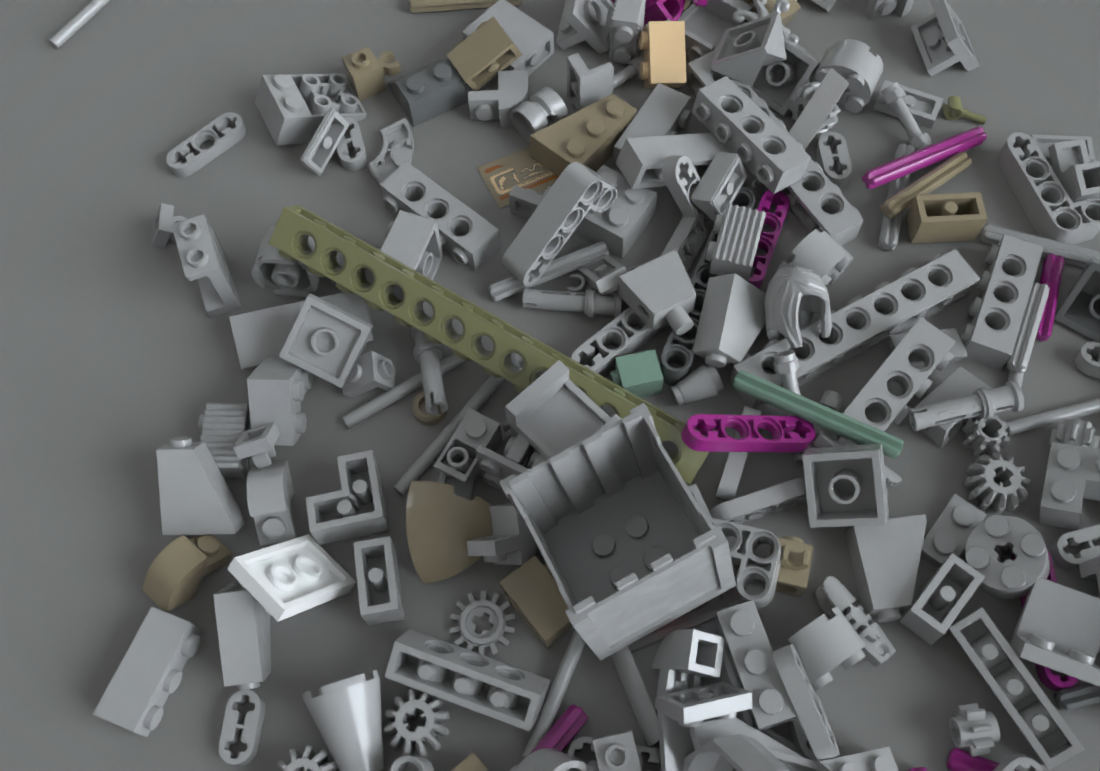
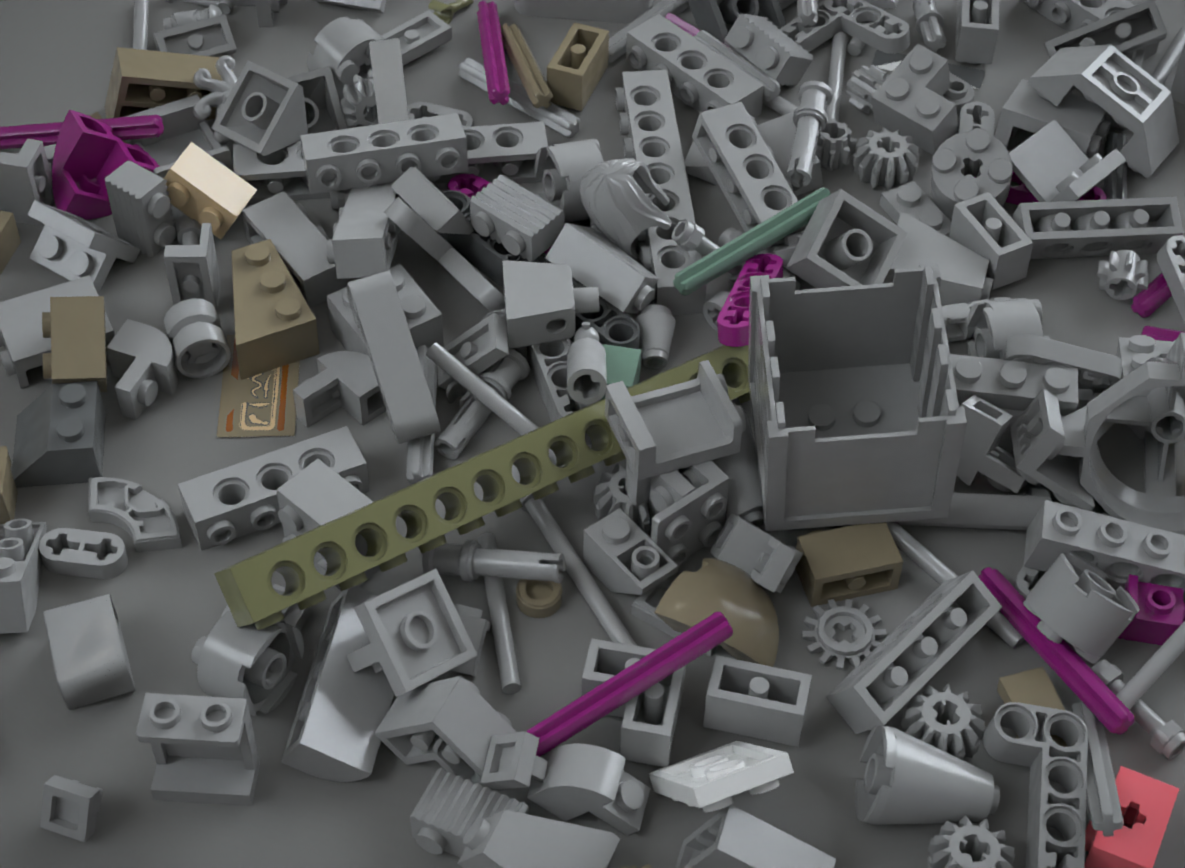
camera: 70 degrees left, 15 degrees down
(273, 181) = (88, 651): none -> light grey piece
(324, 142) = (67, 564): light grey slope -> none
(334, 487) = (631, 682): none -> magenta axle
(571, 298) = (482, 391): none -> light grey bar
(614, 346) = (586, 366): none -> light grey wheel
(893, 96) = (461, 50): light grey bar -> none
(1063, 344) = (768, 49): none -> light grey brick

